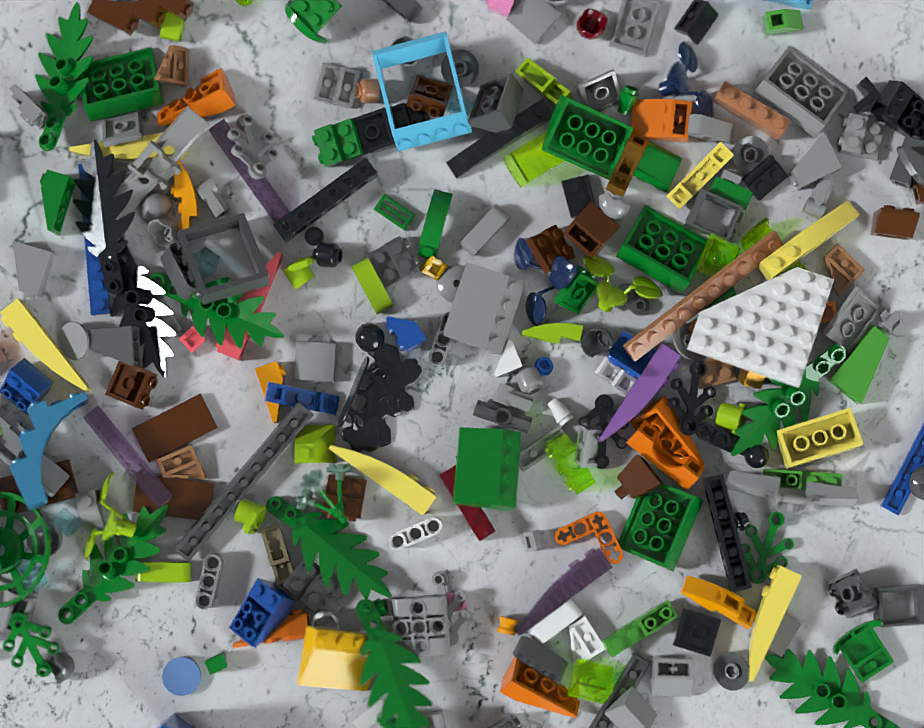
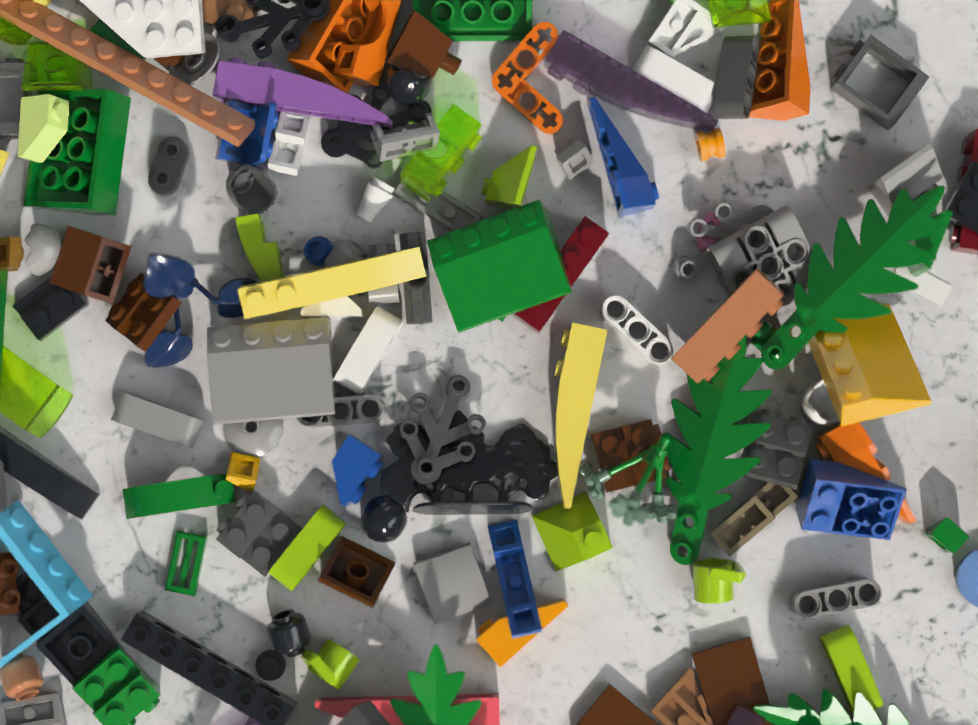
camera: 115 degrees left, 0 degrees up
(243, 481) = (672, 611): dark grey plate -> none
(346, 309) = (357, 572): none -> reddish brown slope
(394, 587) = (728, 325): none -> nougat brick
(404, 390) = (439, 434): none -> dark grey plant
(472, 370) = (368, 351): none -> white beam
(510, 567) = (625, 174): none -> blue wedge
(519, 365) = (330, 282): none -> light yellow slope
(535, 496) = (510, 181): none -> lime slope
(578, 291) = (189, 243): green plate -> none
(611, 295) = (171, 193): lime plant -> none
(618, 459) = (406, 87): none -> black hair
(686, 235) = (41, 125): none -> yellowish green slope

